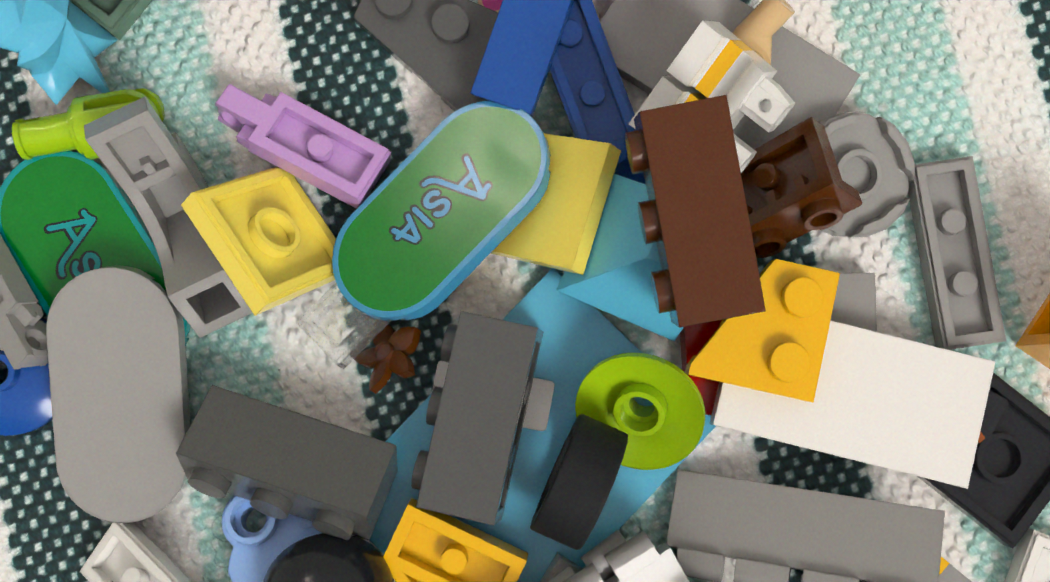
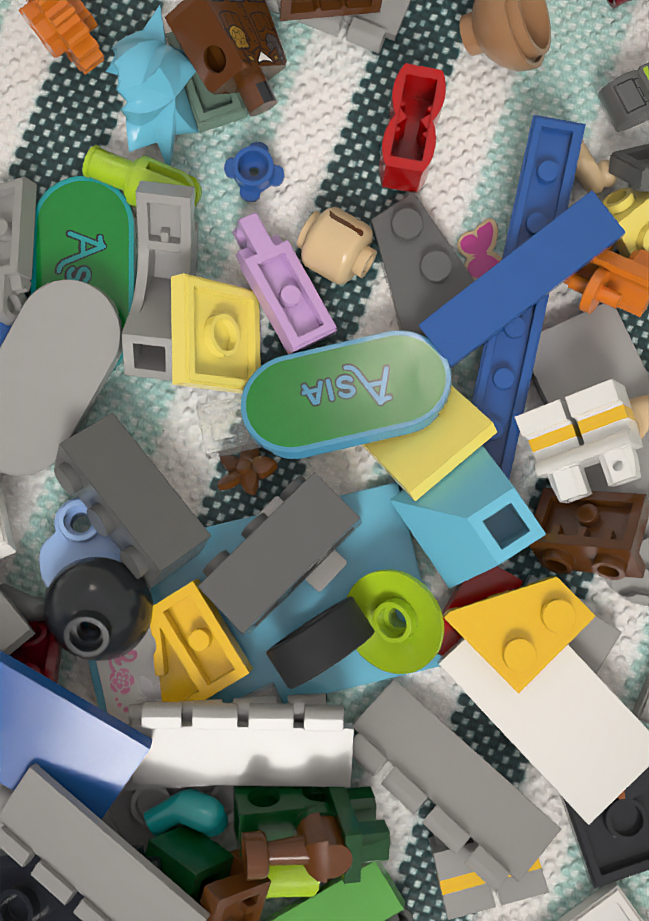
camera: 35 degrees right, 0 degrees up
(188, 31) = (250, 157): none -> blue plate
(334, 65) = (336, 245): none -> tan head
(695, 212) = (520, 509): reddish brown brick -> none

